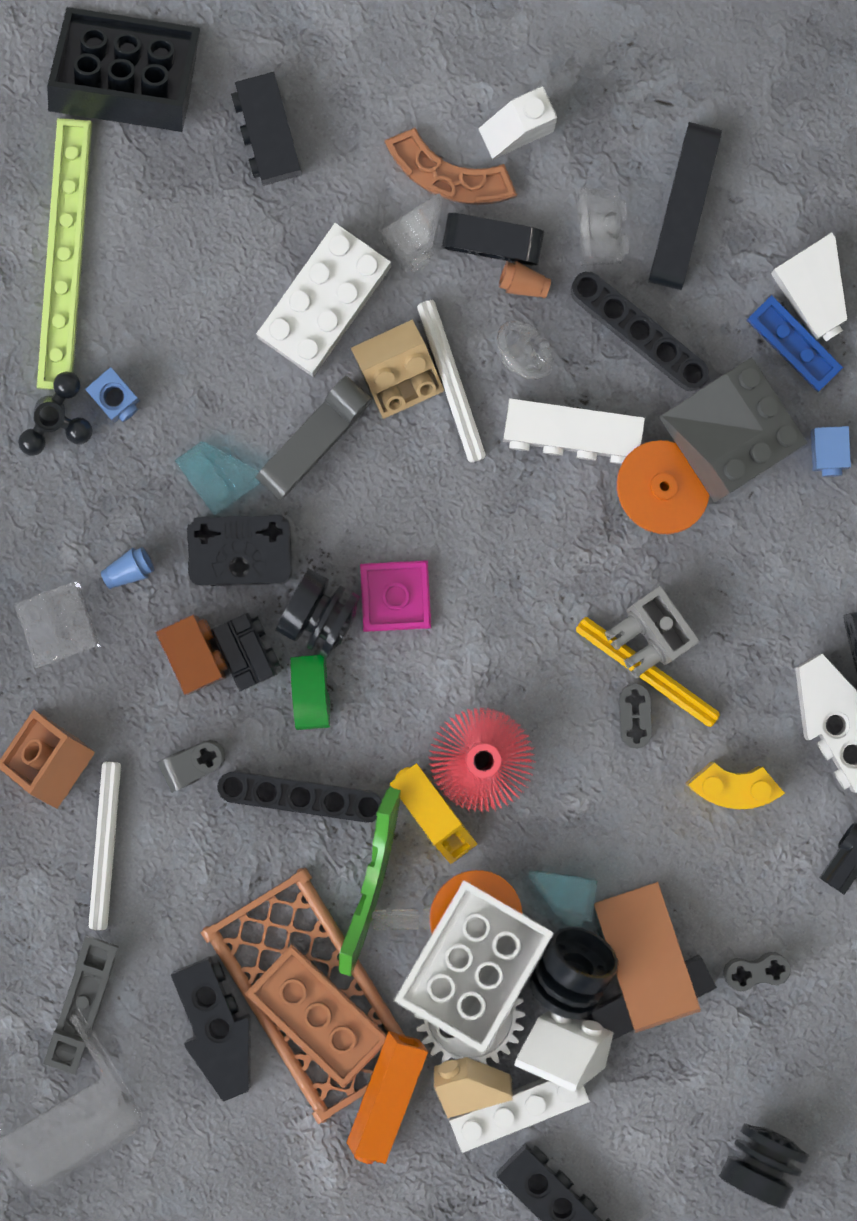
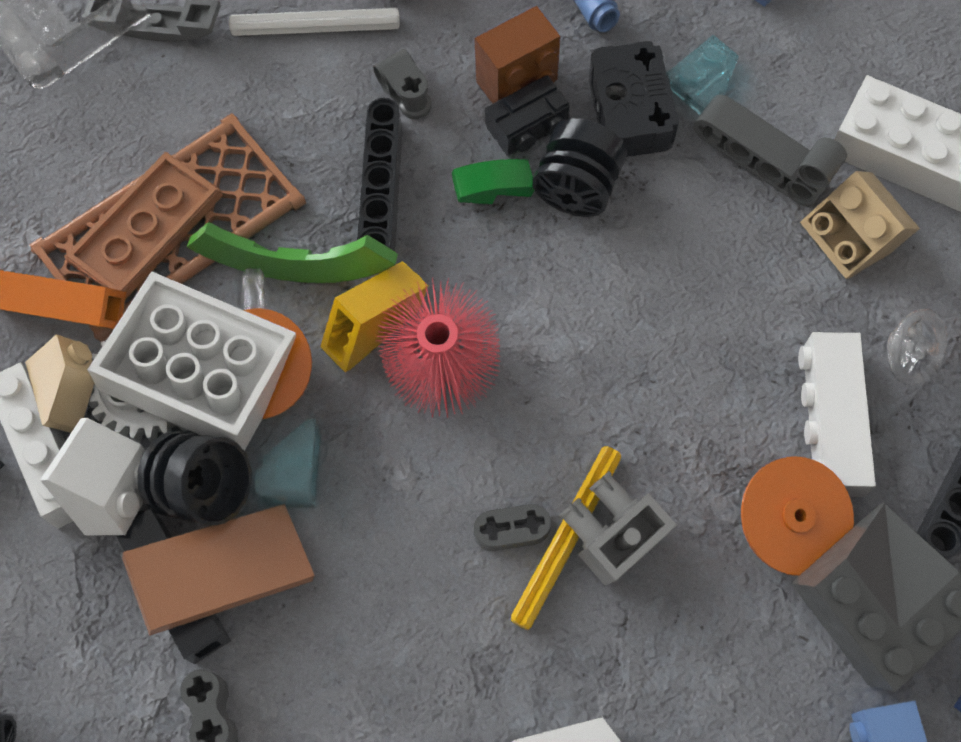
camera: 85 degrees right, 20 degrees down
(221, 1058) = (101, 141): black brick -> none
(395, 596) = (610, 256): dark pink tile -> none
(451, 381) = (858, 283): white axle -> none
(735, 790) = (435, 654): yellow brick -> none

